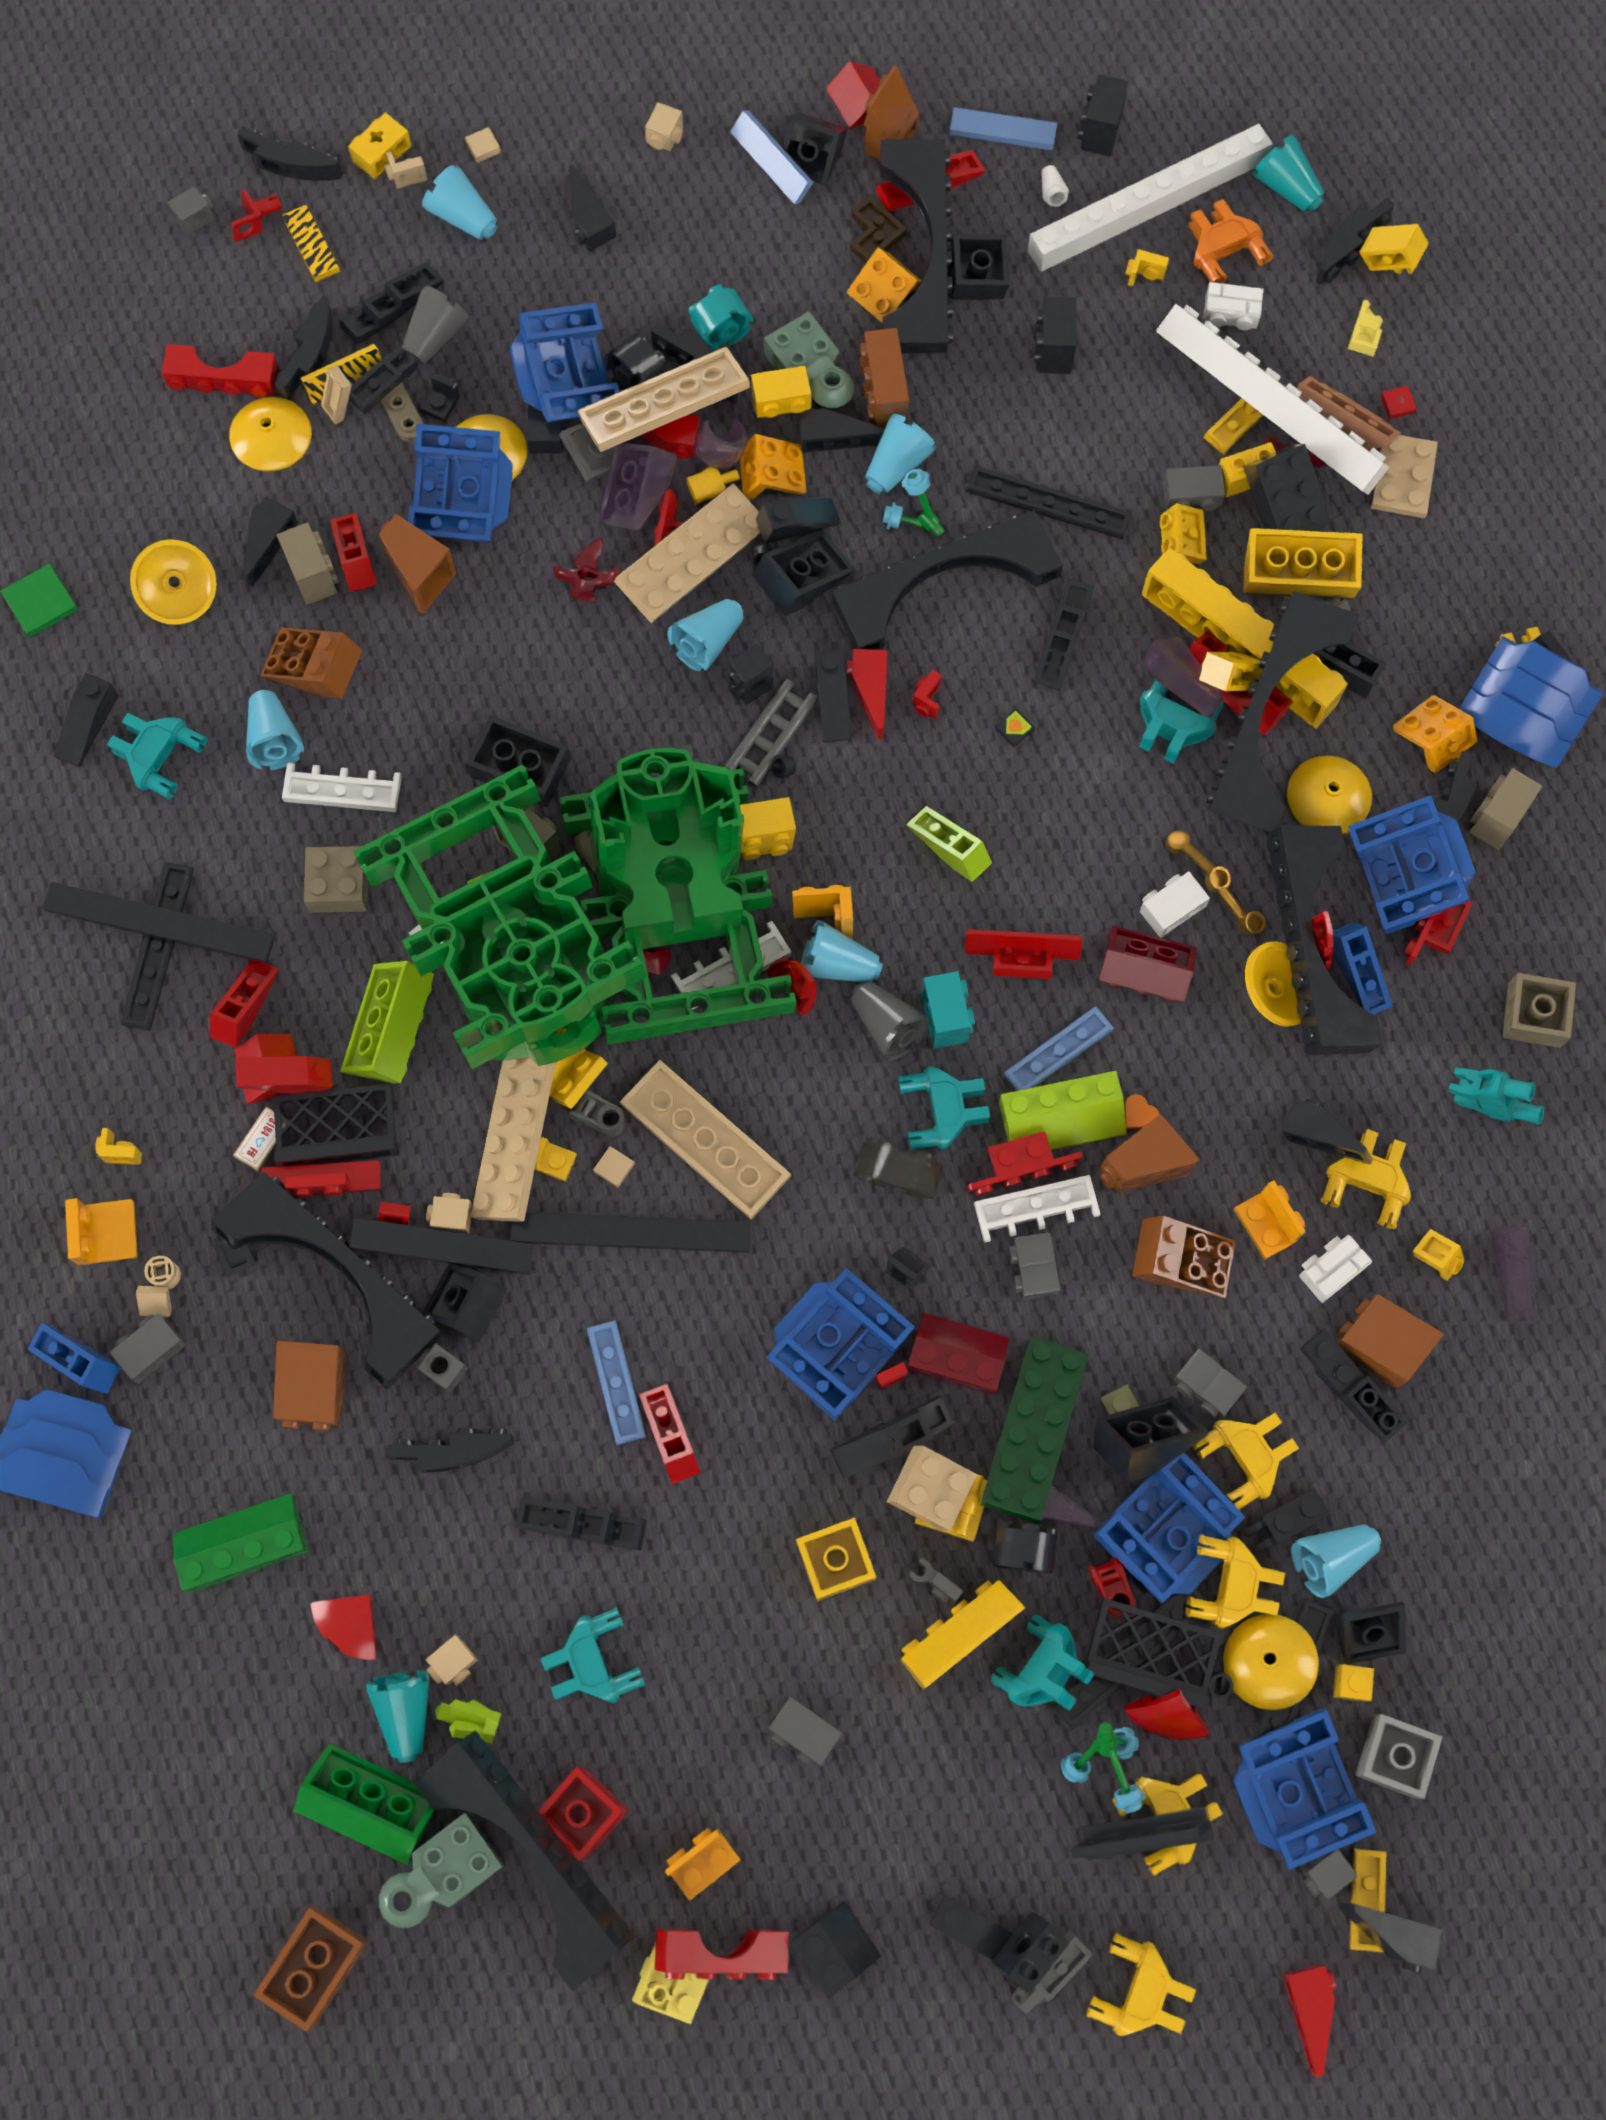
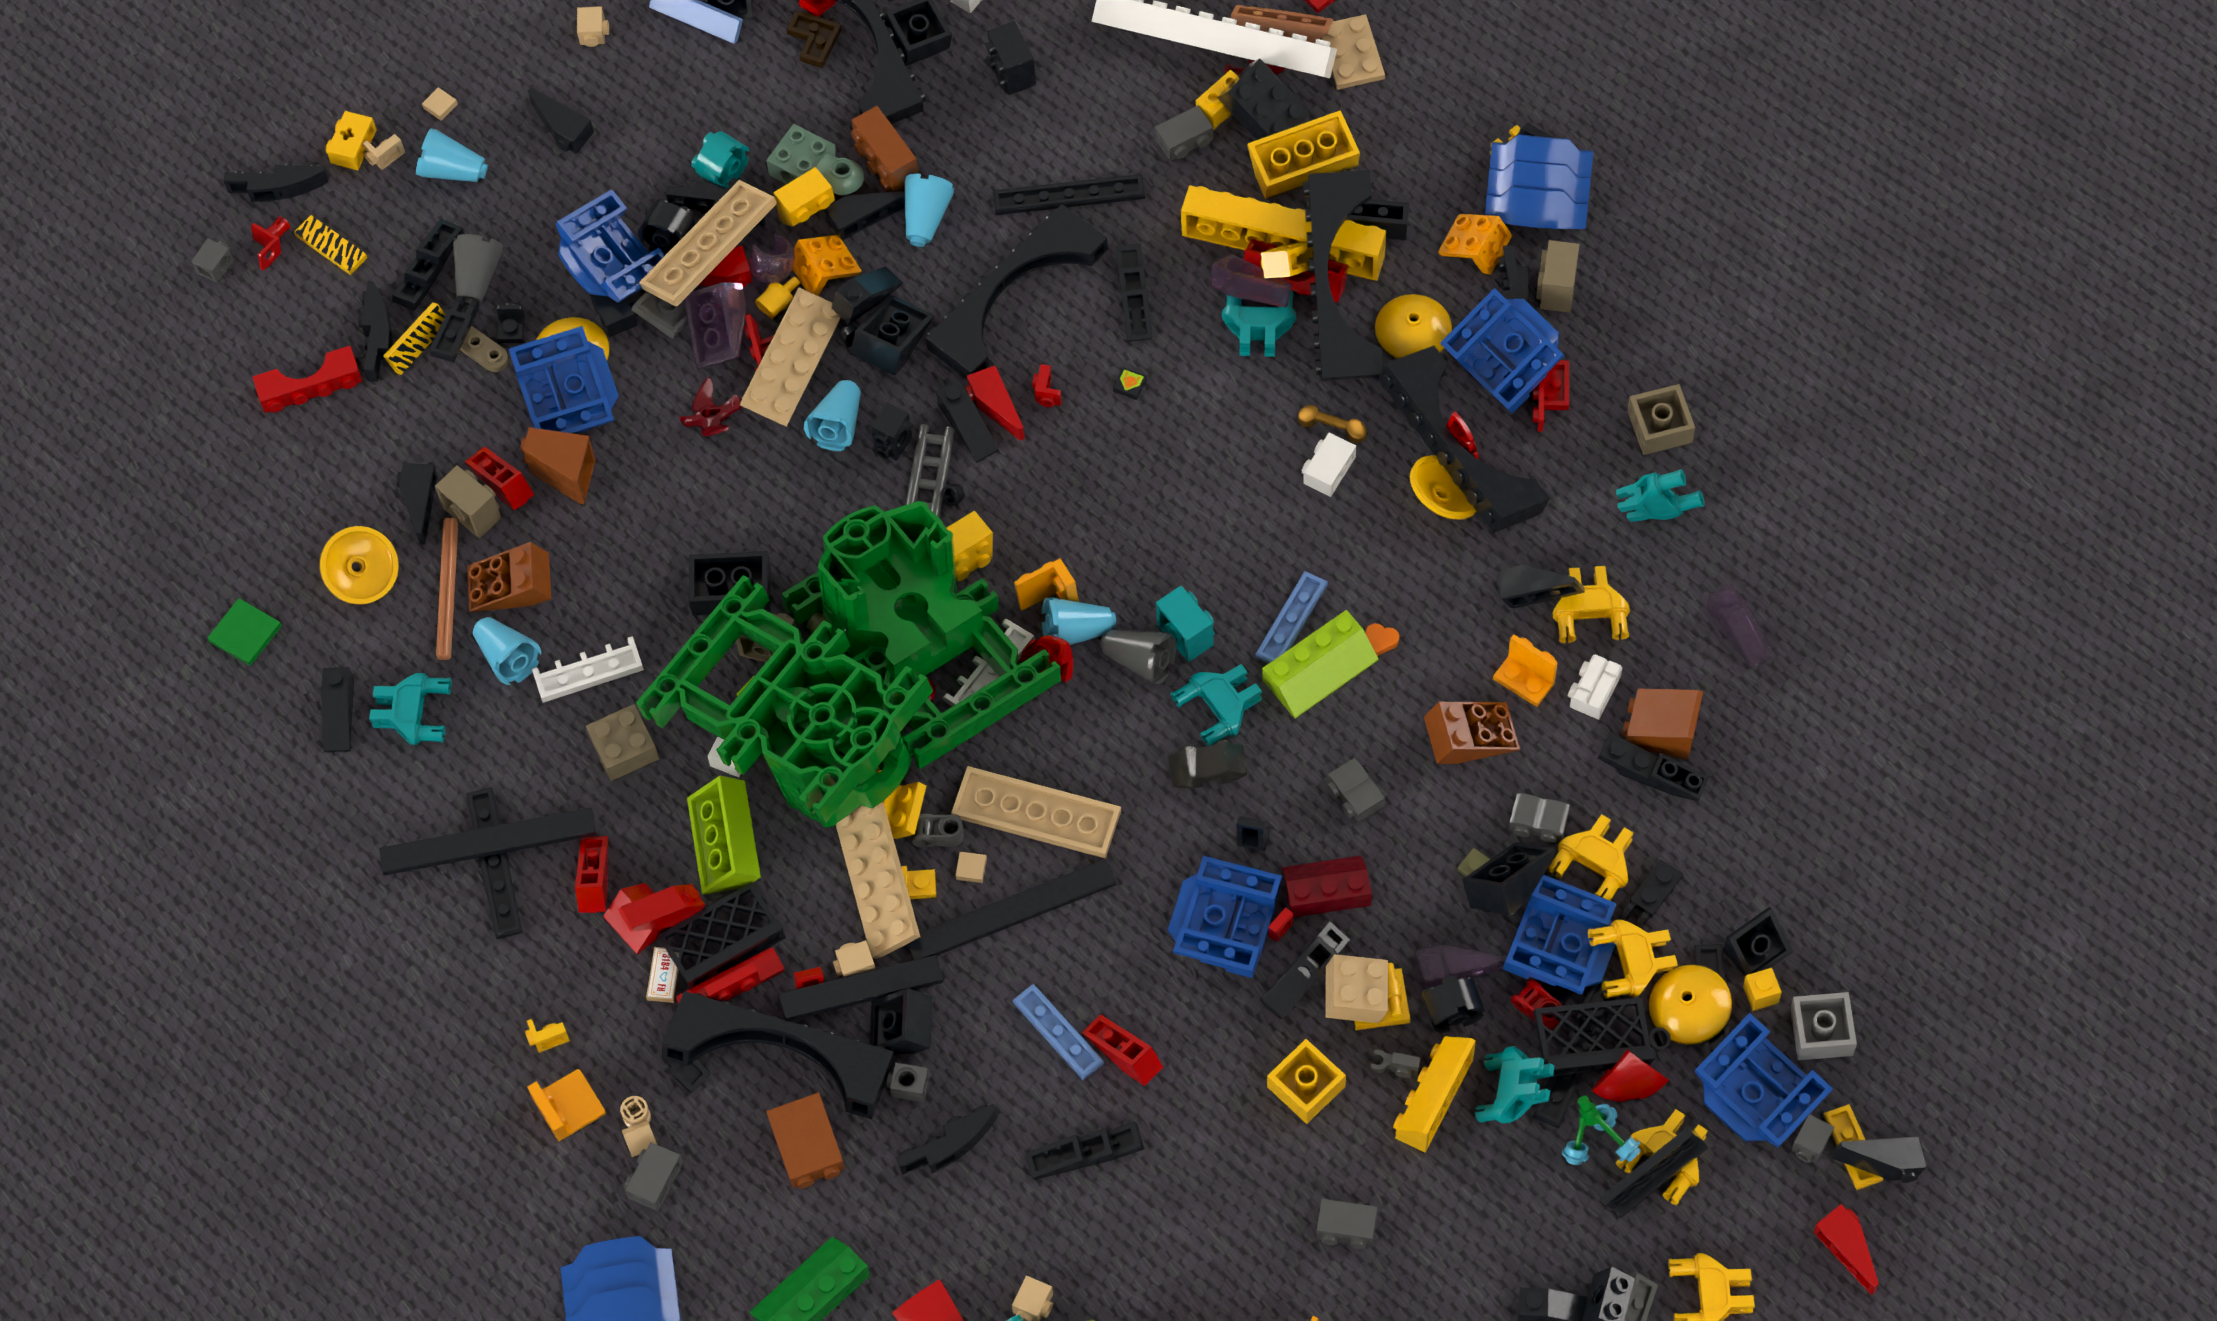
camera: 20 degrees left, 10 degrees down
(74, 1359) = (595, 1212): blue slope -> none
(249, 643) = (447, 589): none -> nougat axle
(271, 446) = (379, 425): yellow dish -> none
(336, 394) = (421, 356): tan tile -> none
(587, 1662) = (1145, 1253): teal connector -> none
(883, 284) = (844, 78): light orange bracket -> none
(915, 483) = (954, 222): plant -> none
(951, 843) = (1127, 495): lime slope -> none
(1022, 1158) = (1303, 712): red bracket -> none
(1023, 953) = (1224, 554): red bracket -> none
(1034, 1430) = (1416, 911): dark green plate -> none
(1036, 1205) = (1332, 744): white hinge -> none
(1148, 964) = (1331, 520): dark red slope -> none
(1148, 1158) = (1406, 666): dark orange slope -> none
(1184, 532) = (1193, 169): yellow bracket -> none
(1217, 881) = (1355, 431): pearl gold bar -> none
(1233, 426) = (1192, 70): yellow tile -> none
(1334, 1556) = (1700, 902): medium azure cone -> none
(1361, 967) = (1503, 448): blue slope -> none
(1440, 1254) = (1673, 639): yellow bracket -> none

